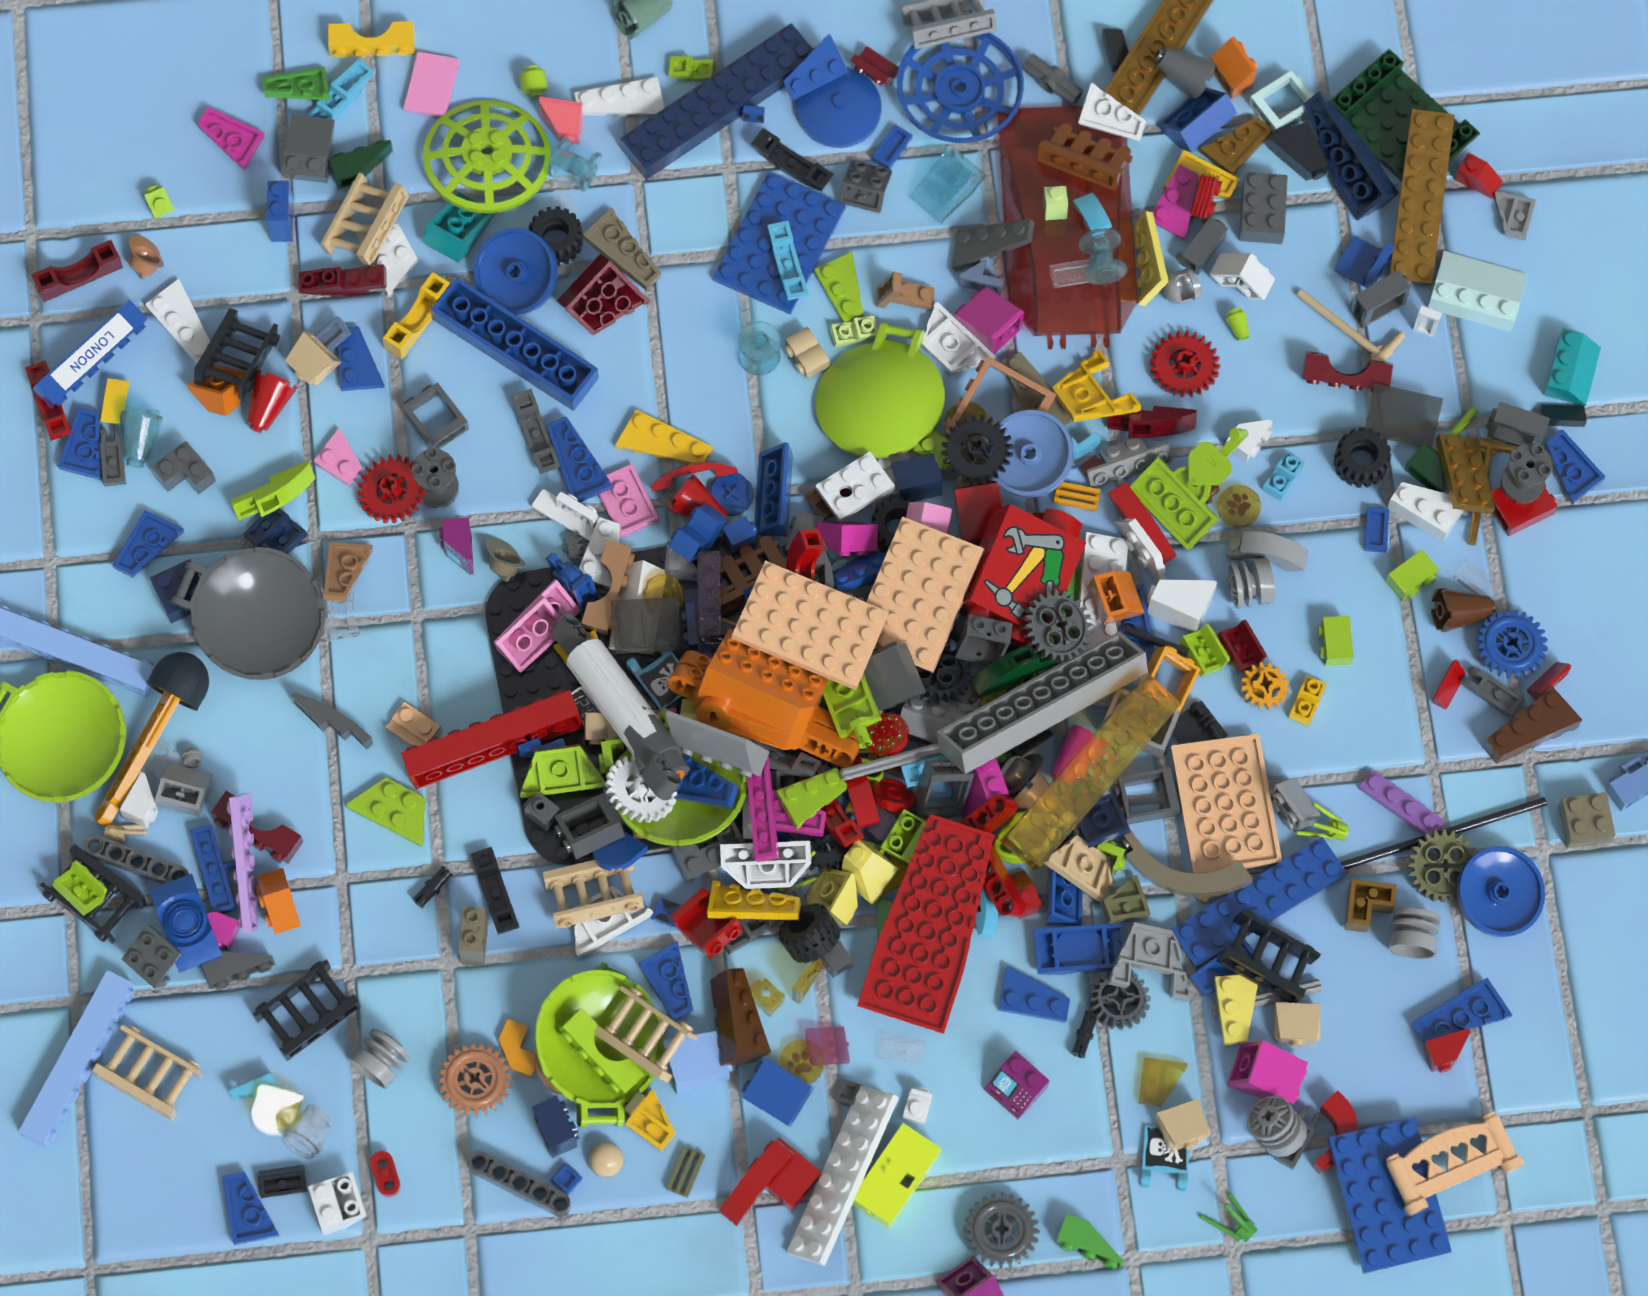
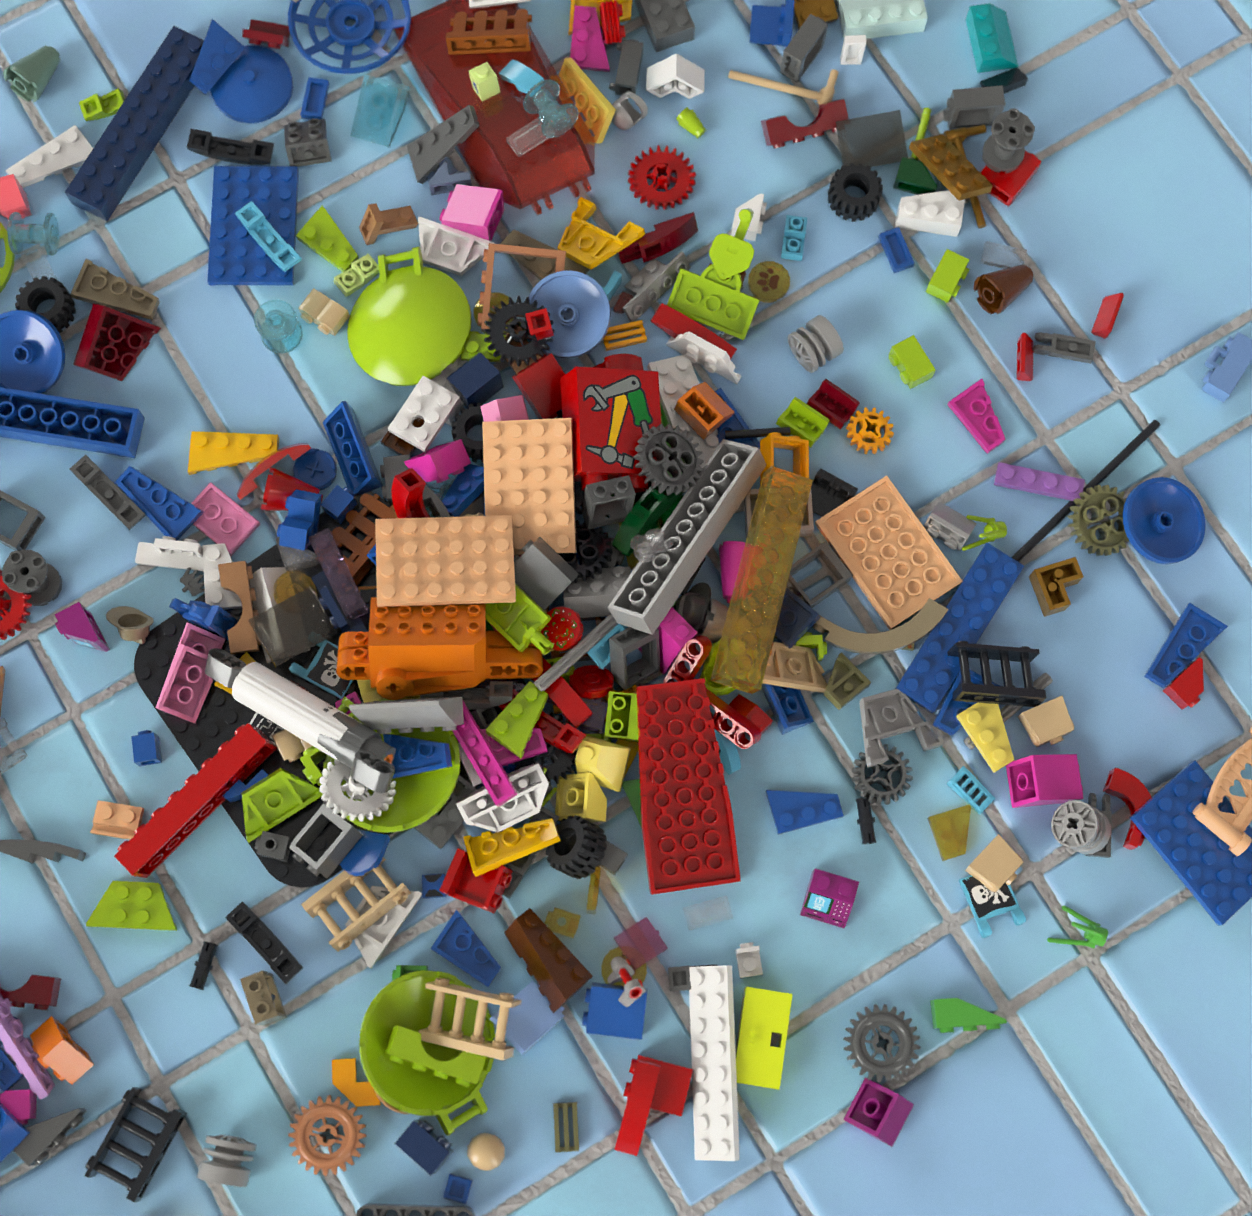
camera: 25 degrees left, 5 degrees up
(467, 675) = (146, 748): none -> blue brick
(633, 1103) = (488, 1086): olive tile -> none
(651, 1122) = (513, 1095): yellow wing -> none
(753, 114) = (177, 121): blue tile -> none
(799, 1061) = (622, 972): none -> light grey piece
(997, 451) = (539, 324): none -> red brick
(999, 694) = (647, 546): none -> clear plate
(1078, 948) = (822, 744): blue slope -> none
(1181, 602) = (763, 388): white slope -> none
(1202, 1049) = (970, 778): none -> medium azure slope
(1278, 549) = (827, 303): light grey arch -> none
(1307, 700) = (911, 426): yellow slope -> none
(1375, 715) = (976, 414): none -> dark pink wing
(1414, 933) = (1110, 590): light grey wheel -> none
(1502, 659) = (1055, 310): blue gear -> none
(1537, 723) = (1119, 355): reddish brown wedge -> none
(1573, 466) = (1046, 123): blue wing -> none
(1586, 820) = (1202, 423): dark tan brick -> none

